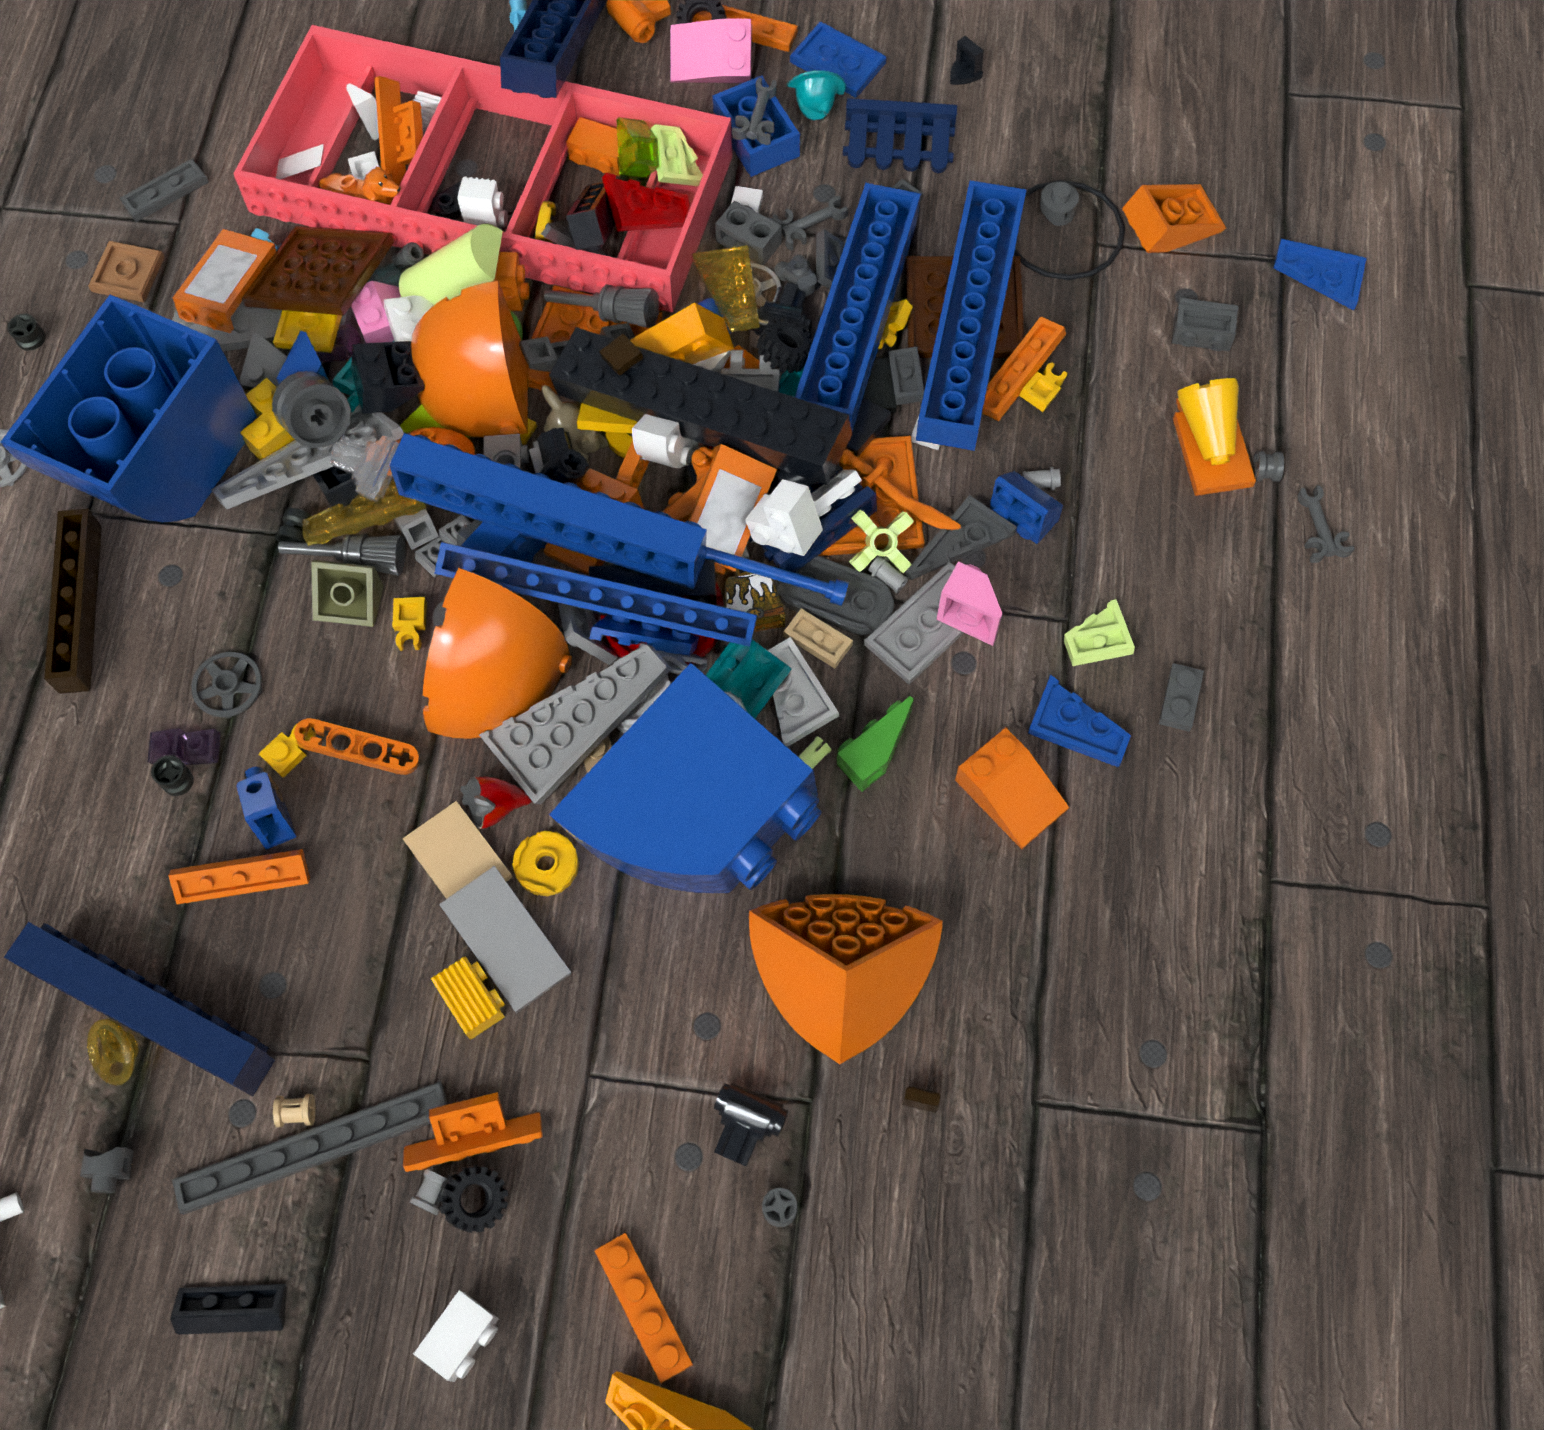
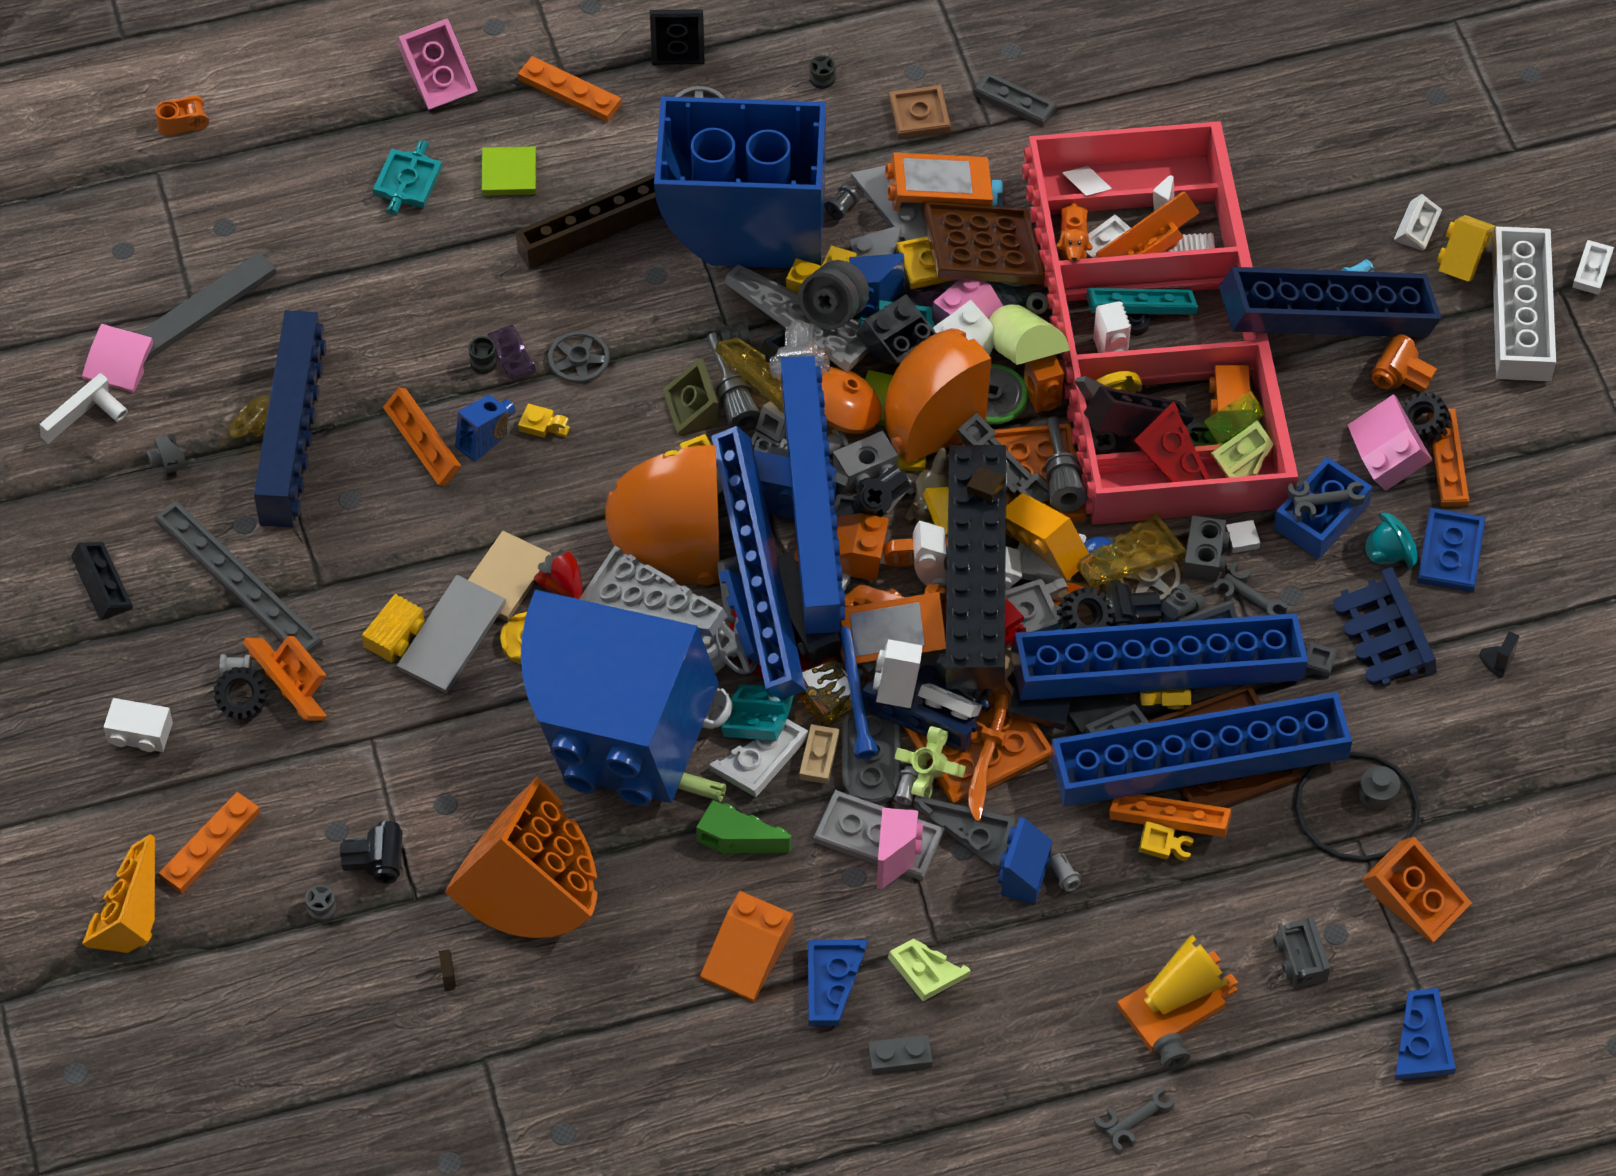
camera: 65 degrees right, 10 degrees down
(294, 1110) = (258, 553): tan bush -> none
(354, 752) = (564, 464): orange beam -> none
(461, 164) = (1144, 300): none -> teal tile

